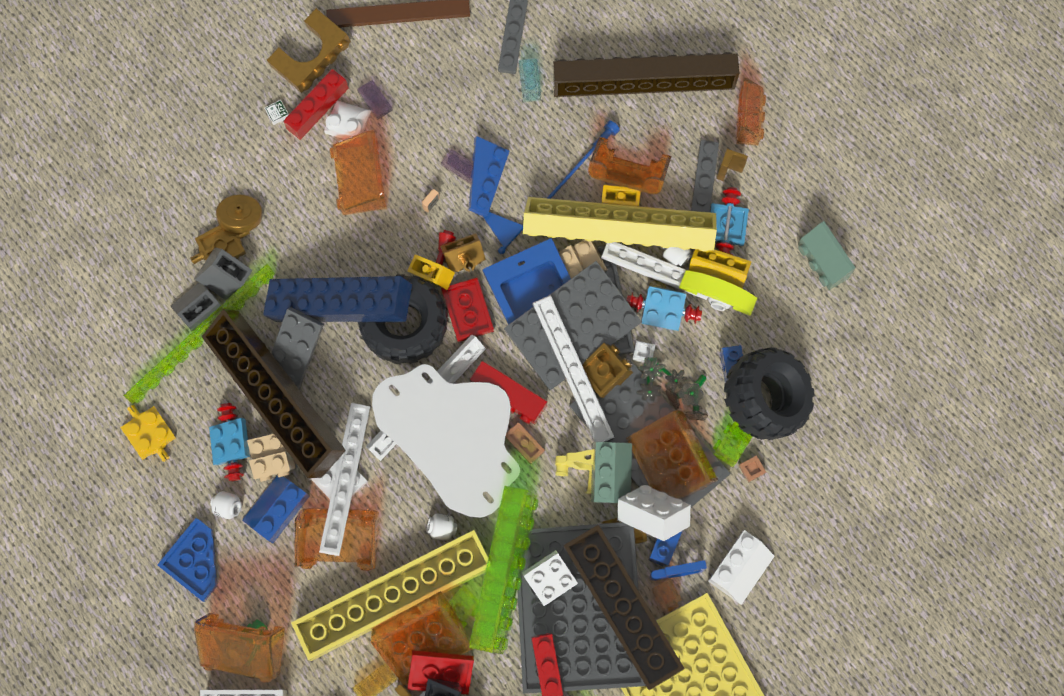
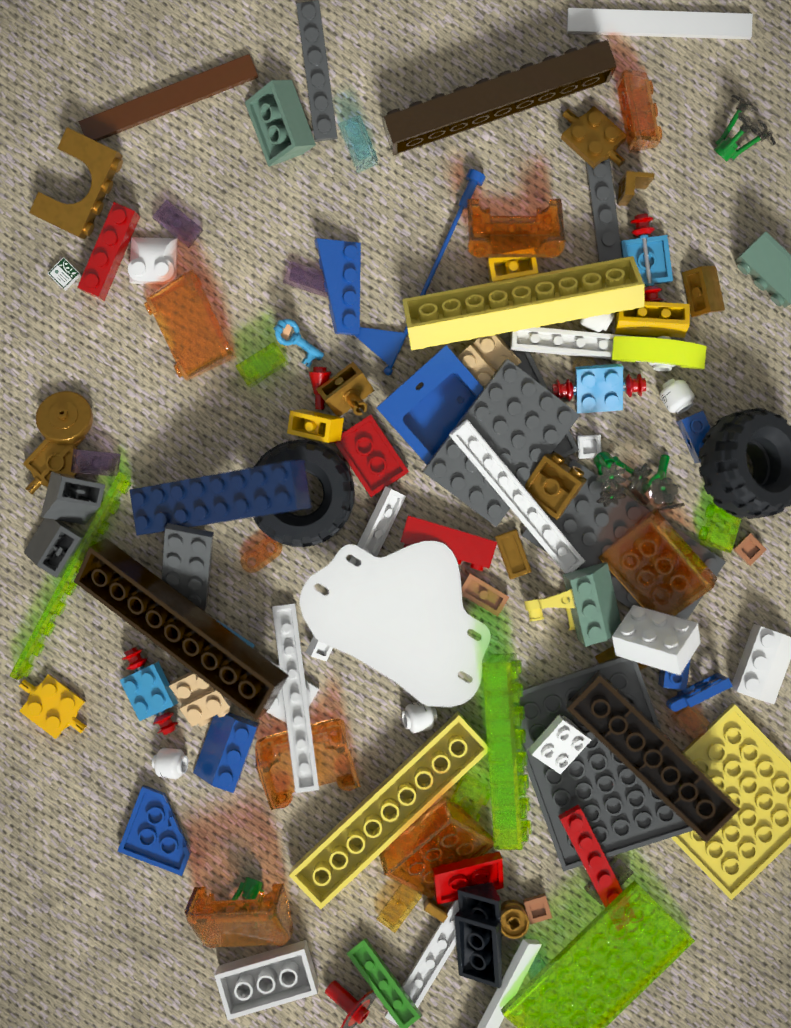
camera: 15 degrees left, 15 degrees up
(250, 252) = (95, 462): none -> plate
(356, 361) = (261, 555): none -> clear orange plate
(404, 217) = (262, 364): none -> clear neon green brick
(447, 220) = (312, 351): none -> dark azure piece
(475, 49) = (279, 122): none -> sand green slope
(558, 419) = (513, 554): none -> pearl gold tile
(711, 123) = (594, 137): none -> pearl gold plate
(724, 331) = (677, 396): none -> white head
(767, 258) = (703, 290): none -> pearl gold panel
(784, 59) = (659, 23): none -> white tile
(812, 158) = (728, 147): none -> plant

